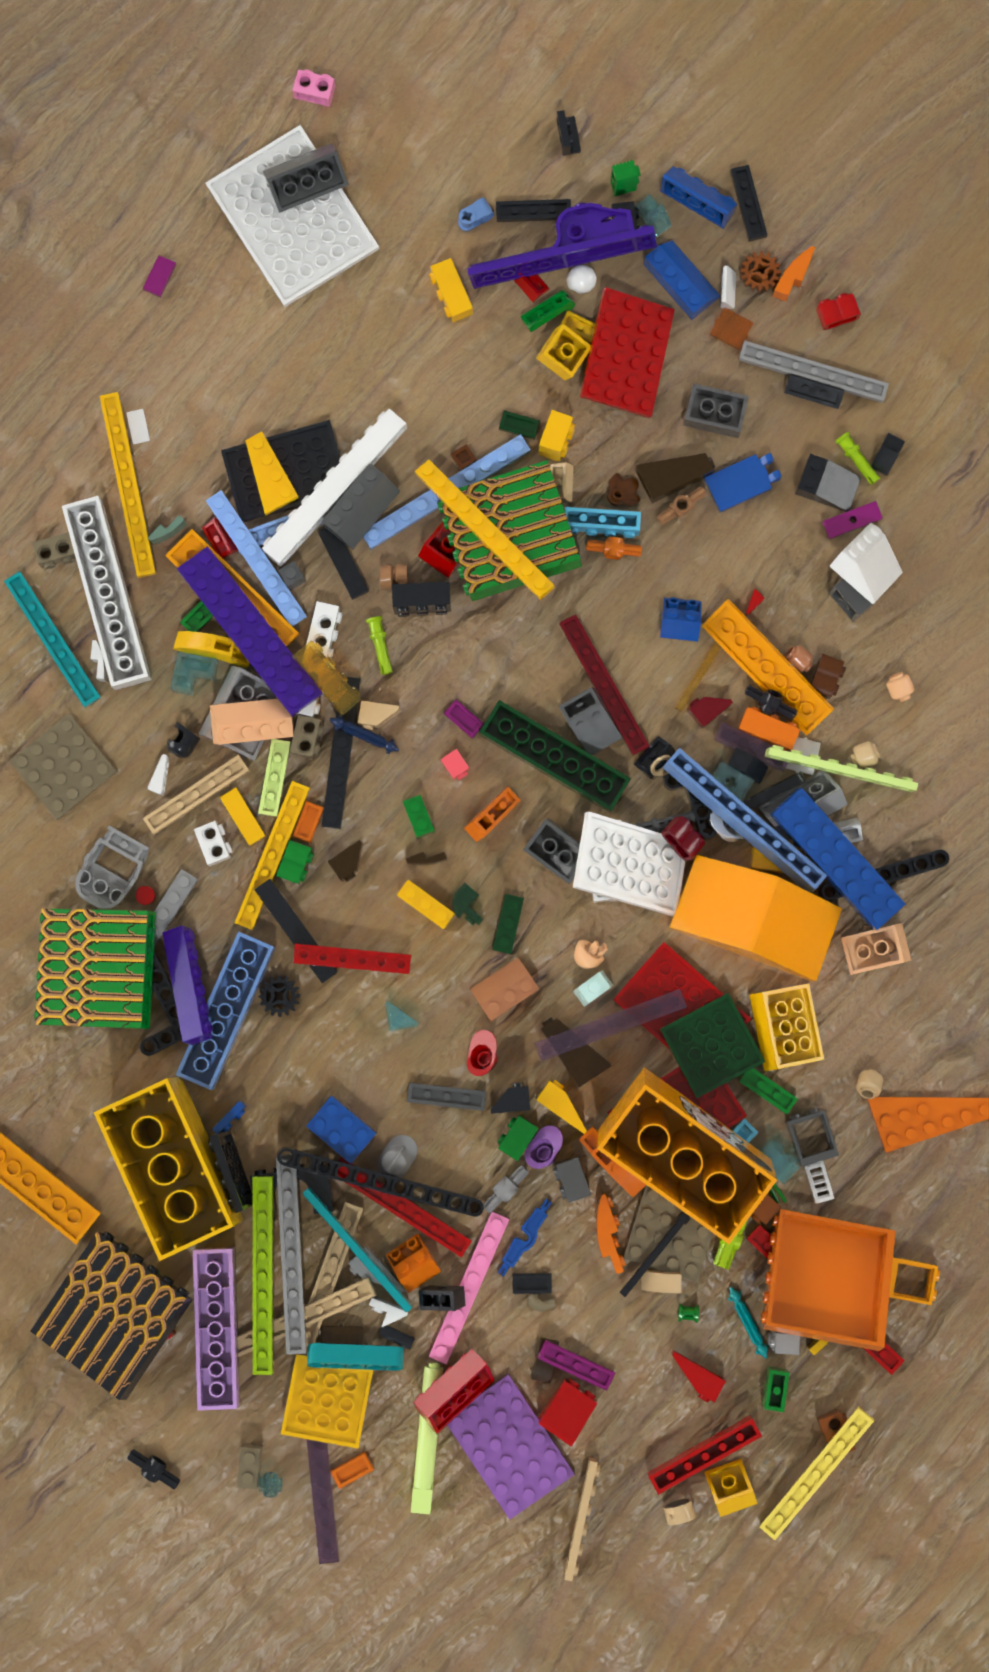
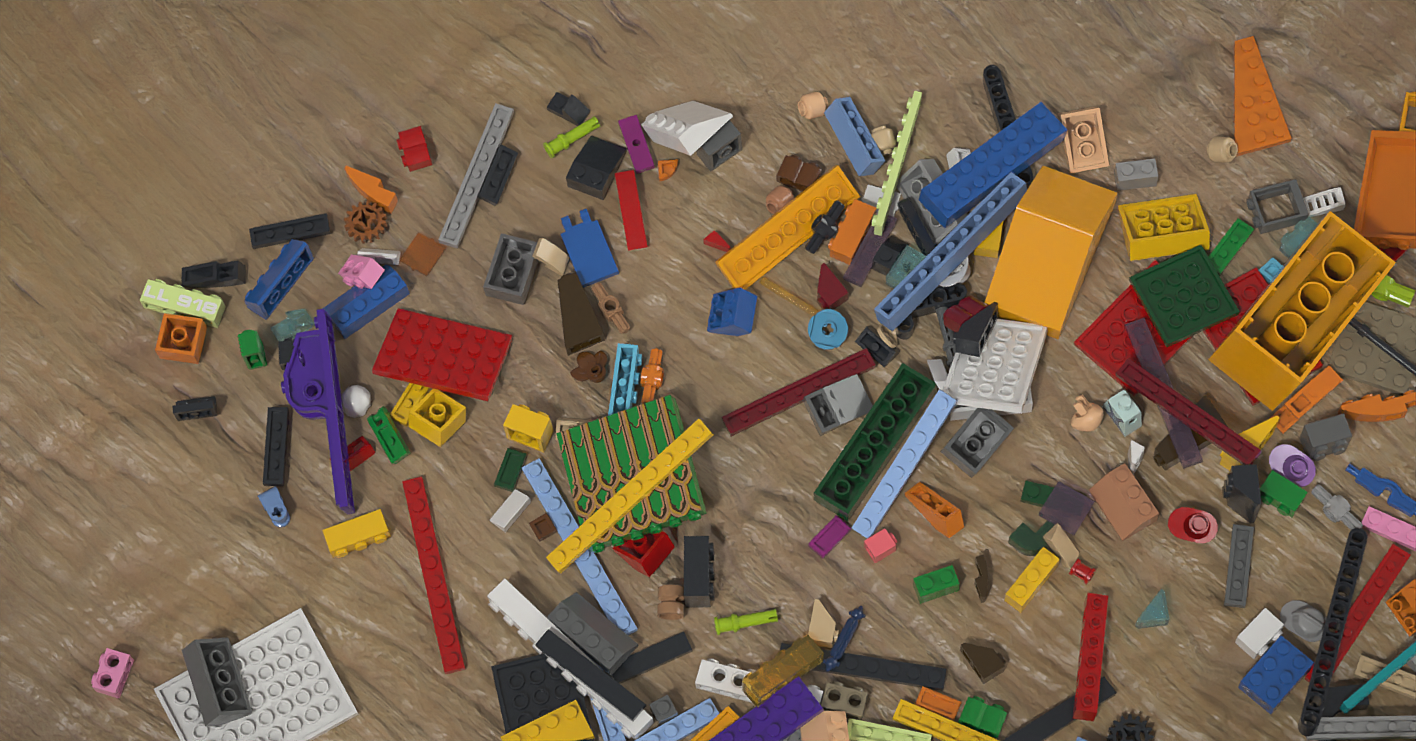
camera: 85 degrees left, 15 degrees down
(315, 505) = (590, 675): none -> black tile
(381, 1115) = (1259, 634): none -> white brick
(416, 363) = (433, 575): none -> red plate
(436, 951) = (1082, 571): none -> red bush
(458, 932) = (1061, 546): none -> tan slope
(479, 427) = (510, 510): none -> white slope
(493, 935) = (1066, 508): none -> clear purple tile
(528, 782) = (904, 464): none -> light blue plate
(546, 998) = (1135, 456): none -> white slope
(585, 1047) = (1188, 413): none -> dark red plate
(623, 812) = (938, 372): none -> white slope
(634, 113) = (181, 338): none -> orange brick
(660, 701) = (835, 338): none -> dark azure plate
(663, 846) = (976, 331): none -> black slope
(671, 111) = (182, 302): none -> yellowish green brick
(701, 137) = (214, 275): none -> black slope
(705, 270) = (361, 272): none -> bright pink brick
(729, 445) = (551, 255): none -> tan slope
(782, 518) = (631, 210): none -> red slope
(828, 550) = (667, 169): none -> orange tile
(839, 1000) = (1136, 174): none -> light grey brick
(867, 727) = (854, 136): none -> medium blue brick

